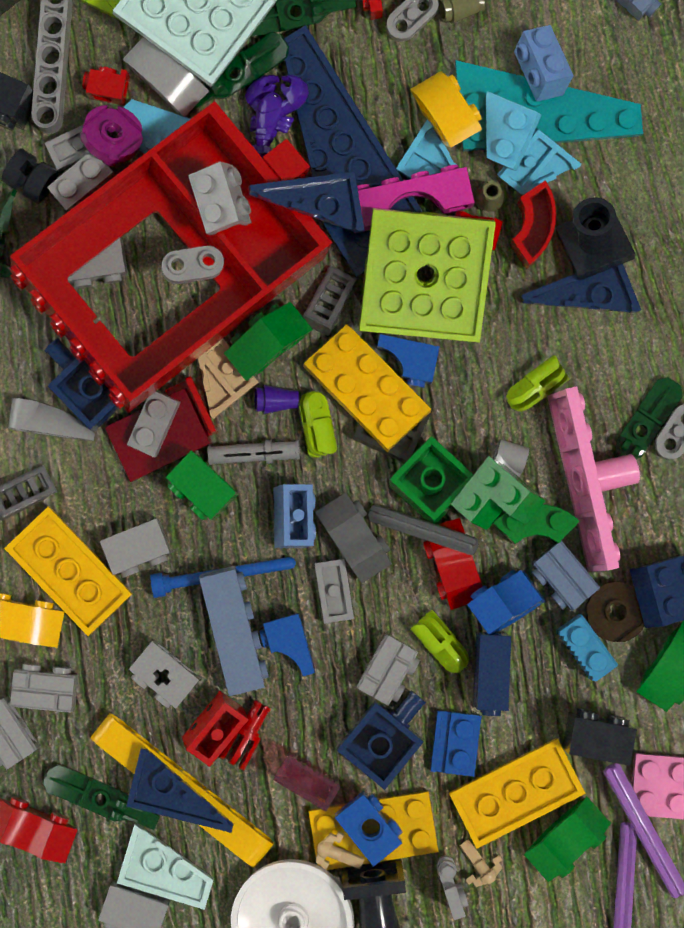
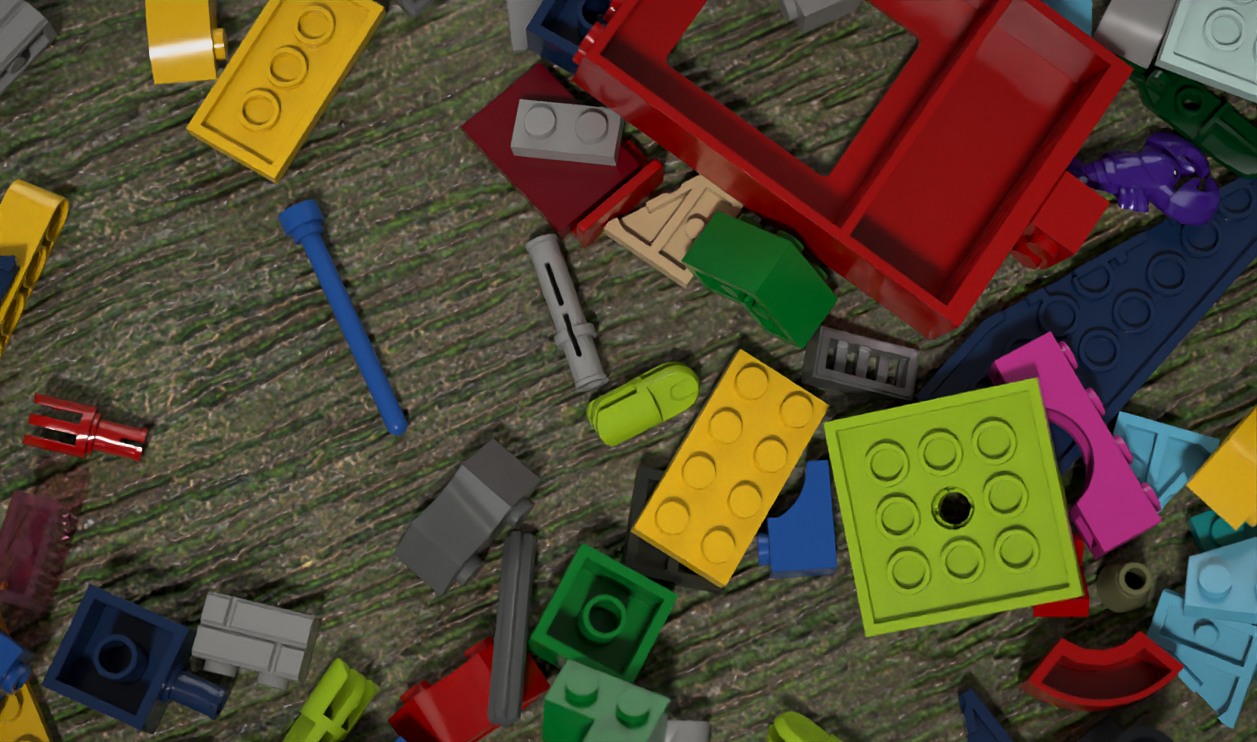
camera: 75 degrees right, 10 degrees down
(44, 688) = (81, 85): light grey brick -> none
(135, 547) = (354, 164): light grey brick -> none
(156, 658) = (154, 296): light grey brick -> none
(193, 265) = (842, 98): light grey plate -> none
(202, 486) = (483, 236): green brick -> none
(214, 728) = (81, 373): red brick -> none
(220, 197) = (974, 114): light grey bracket -> none
(232, 630) = (255, 357): sand blue brick -> none
(274, 399) = (666, 321): dark purple cone -> none
(288, 637) = (265, 460): blue arch -> none
(294, 516) = (476, 404): medium blue brick -> none
(324, 197) = (1029, 289): dark blue wing -> none
(334, 591) = (367, 511): light grey plate -> none

